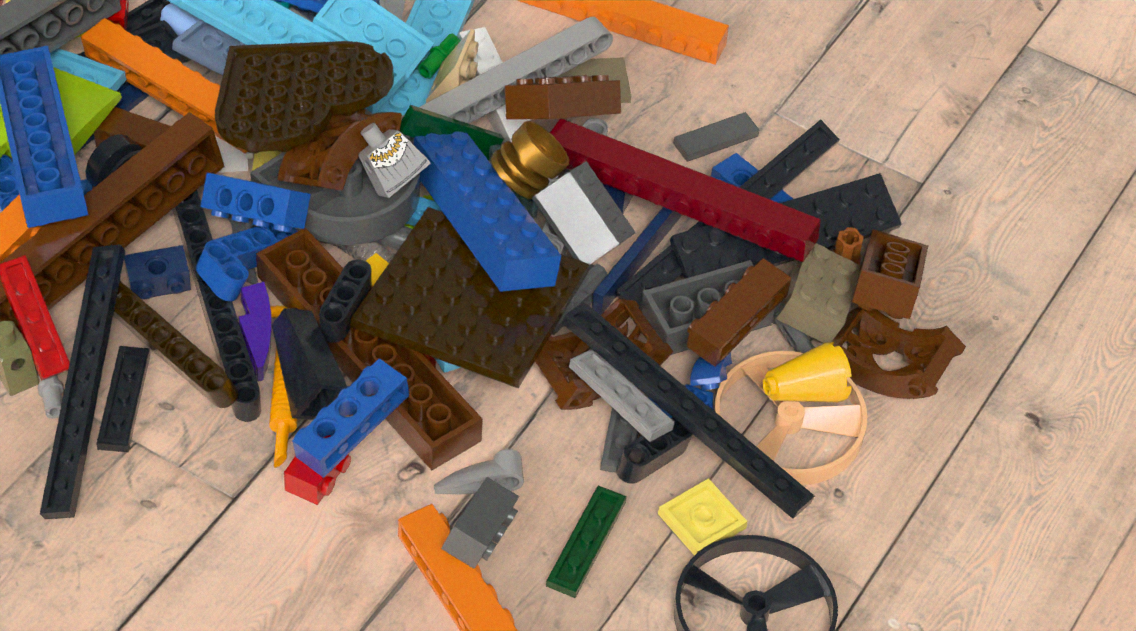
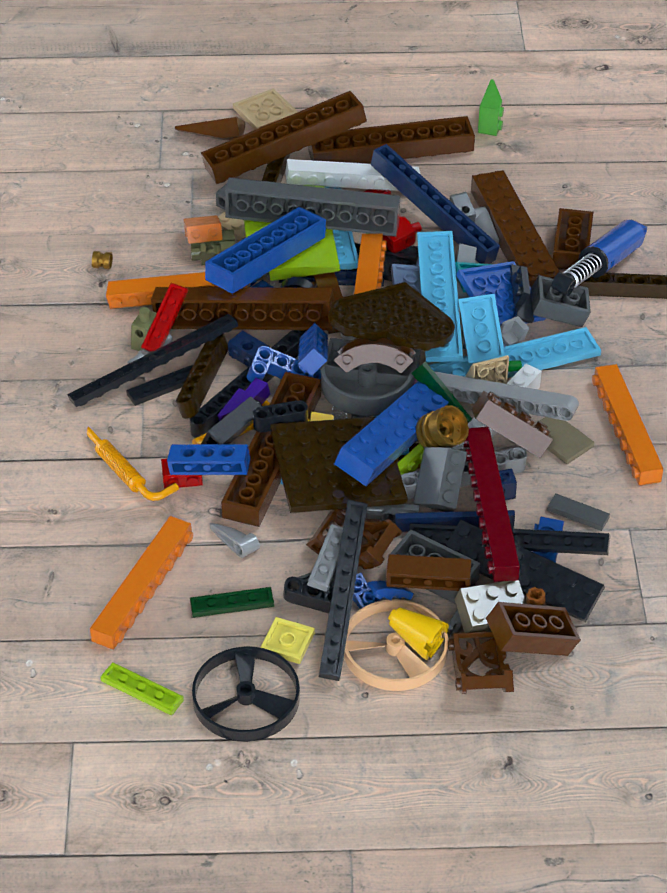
camera: 60 degrees right, 5 degrees down
(248, 526) = (125, 470): none -> light orange piece
(390, 159) = (378, 374): light grey torso -> none
(482, 523) = (194, 547): dark grey brick -> none

